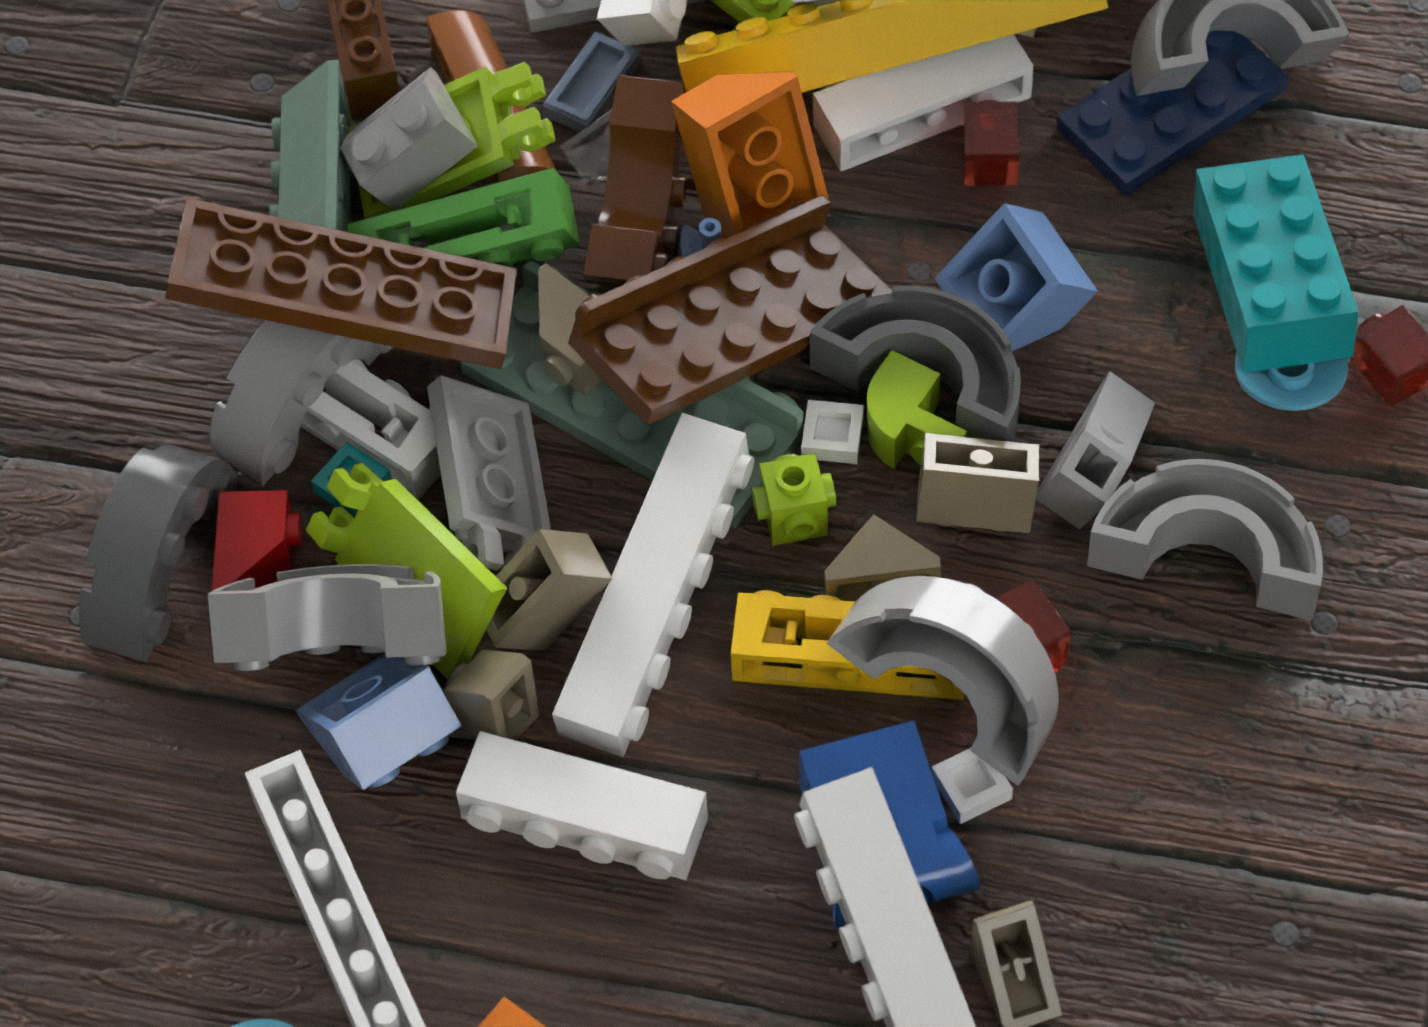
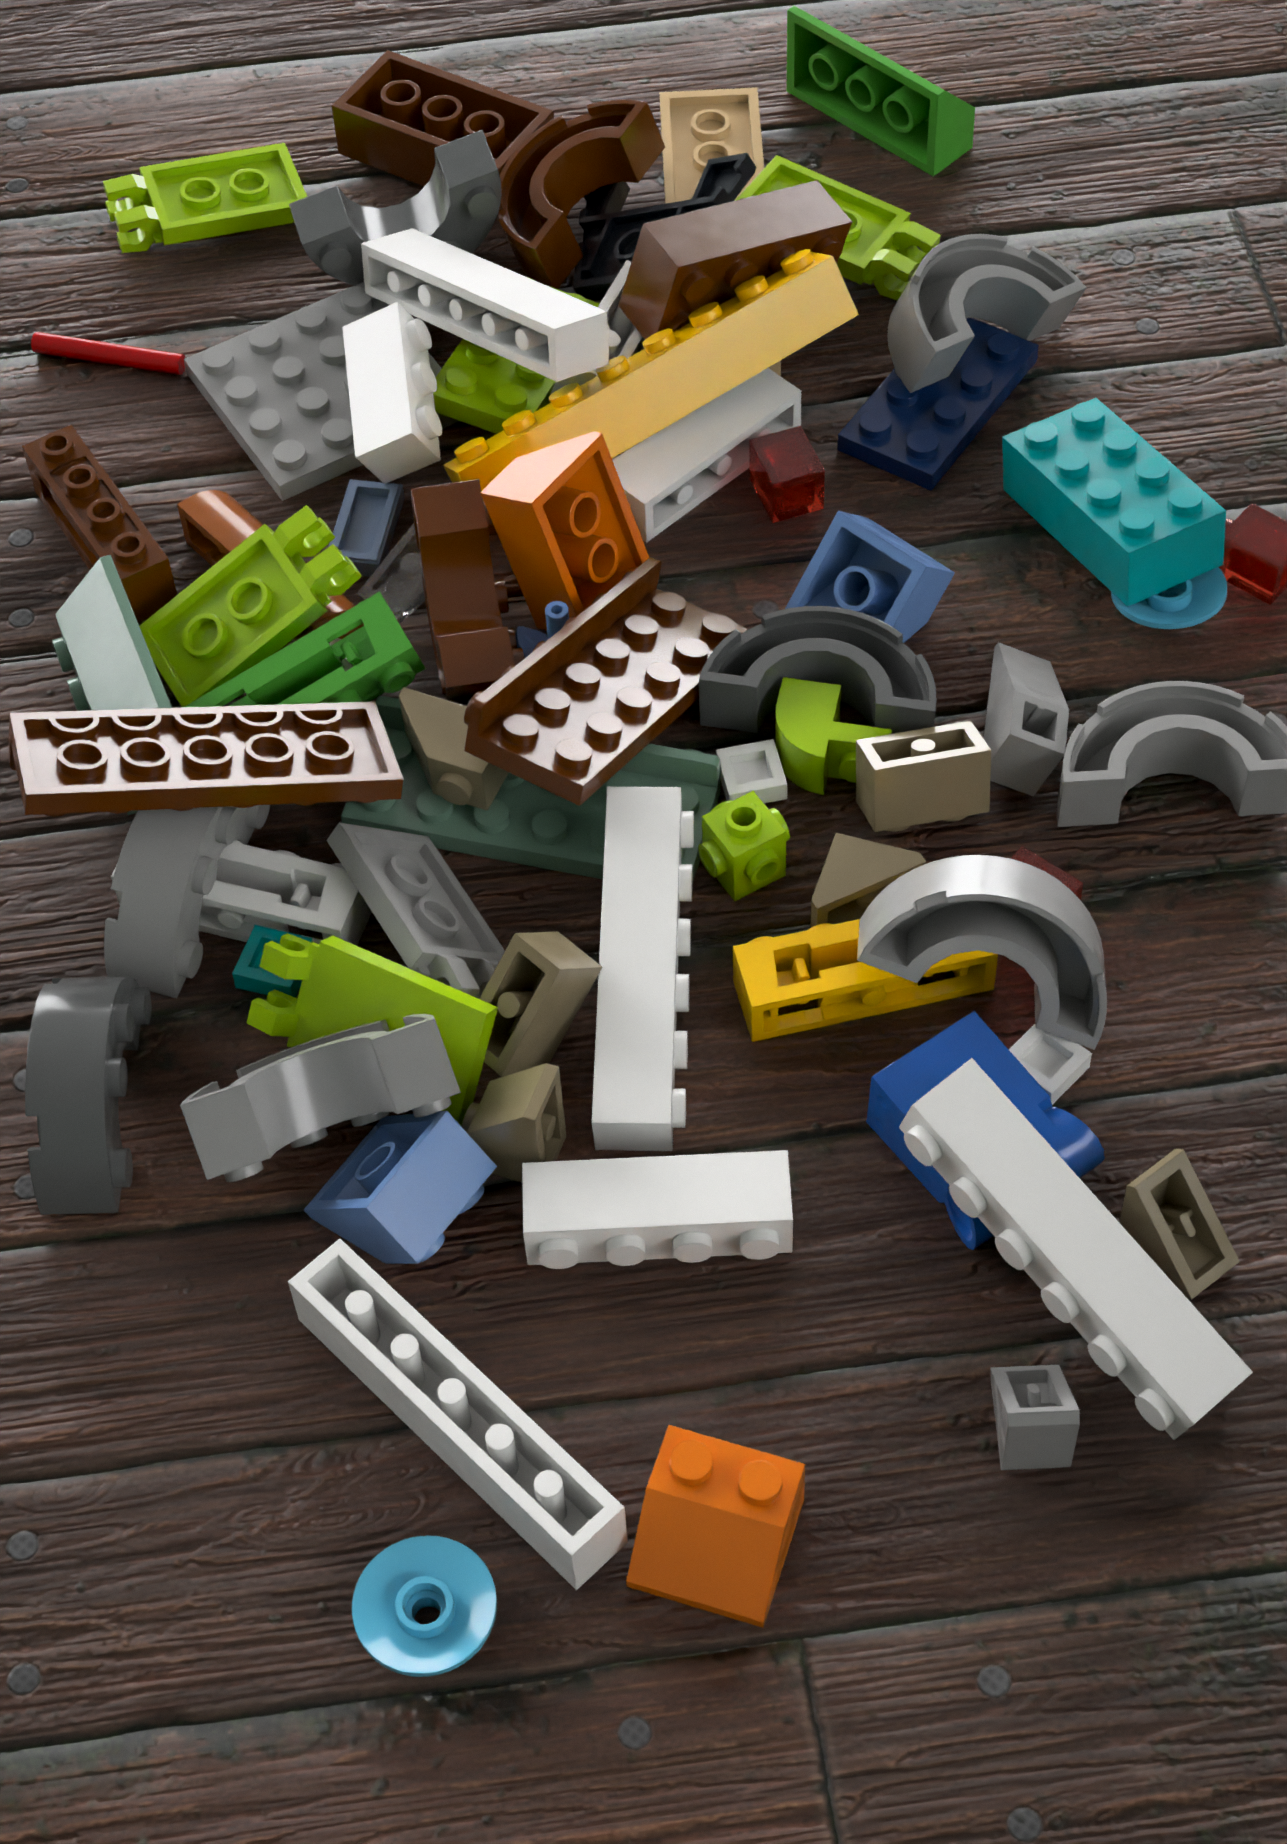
camera: 20 degrees left, 5 degrees down
(254, 536) = (193, 1046): red slope -> none
(408, 141) = (211, 616): light grey slope -> none

